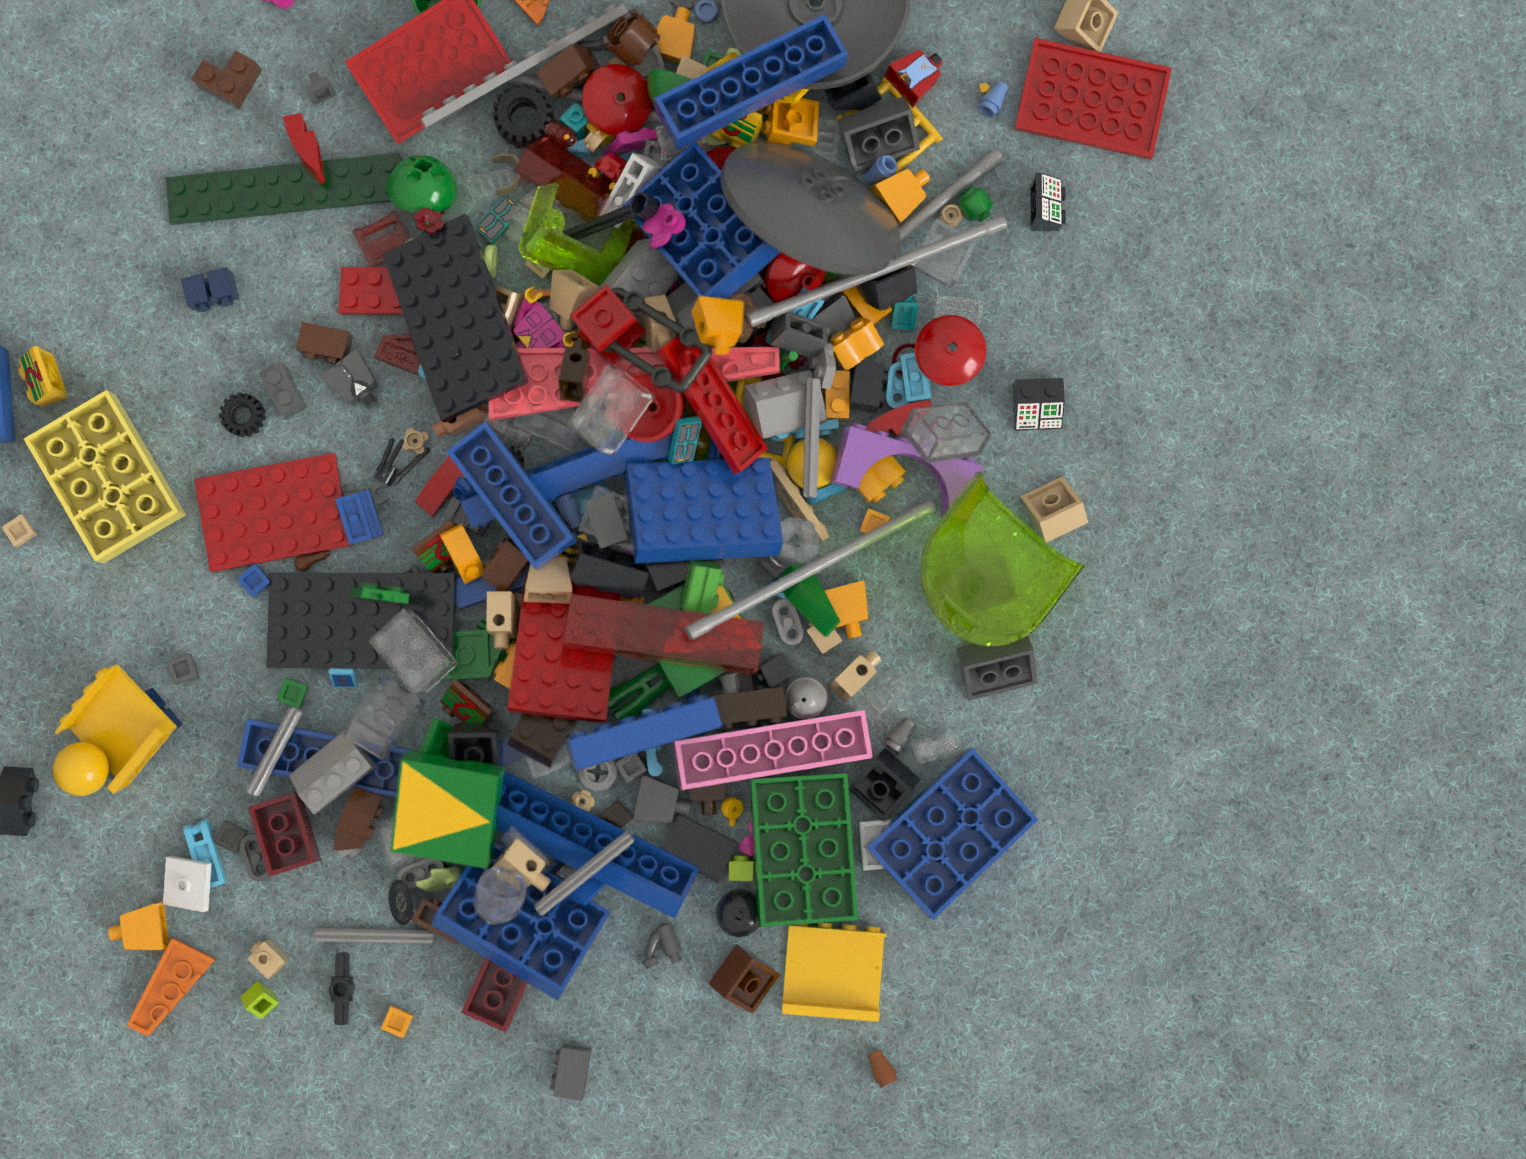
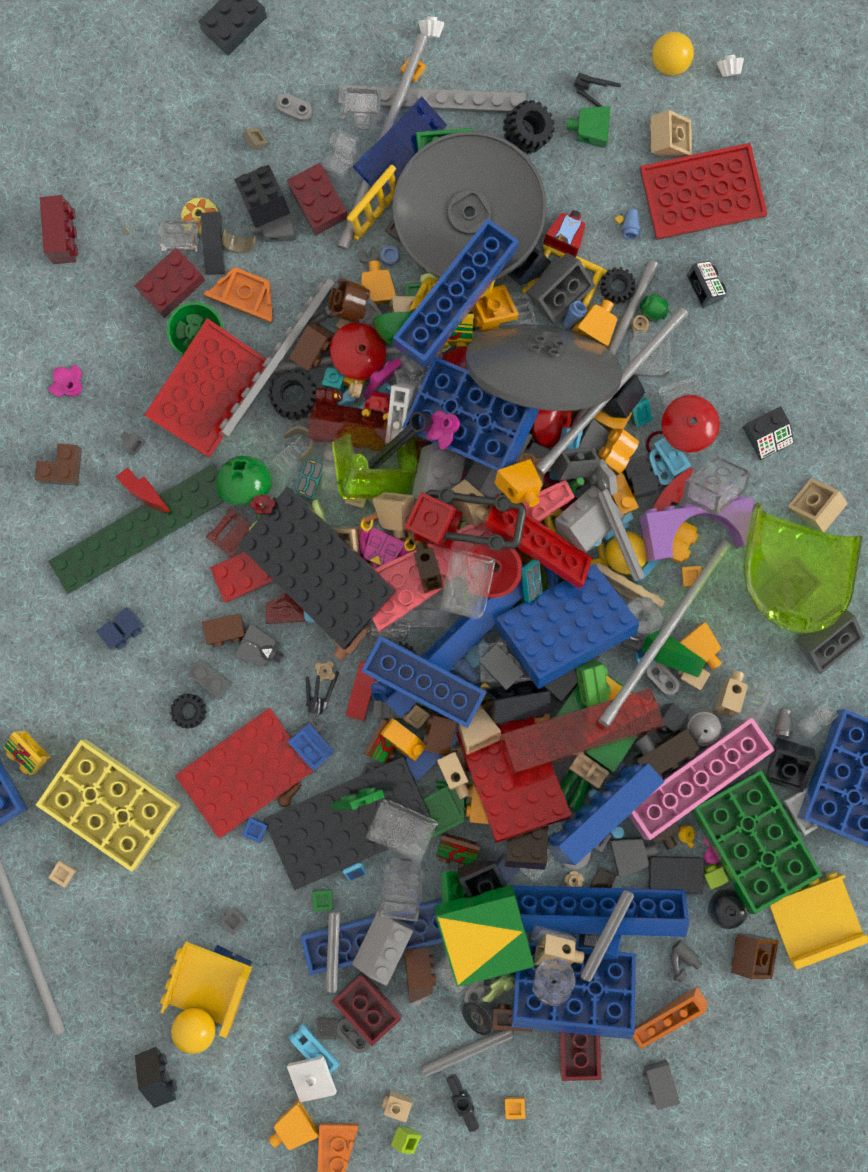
camera: 20 degrees left, 0 degrees up
(490, 535) = (416, 716): none -> tan plate
(617, 1002) = (671, 1017): none -> orange slope
(653, 683) = (589, 770): none -> tan hips
(952, 148) = (617, 274): none -> black tyre

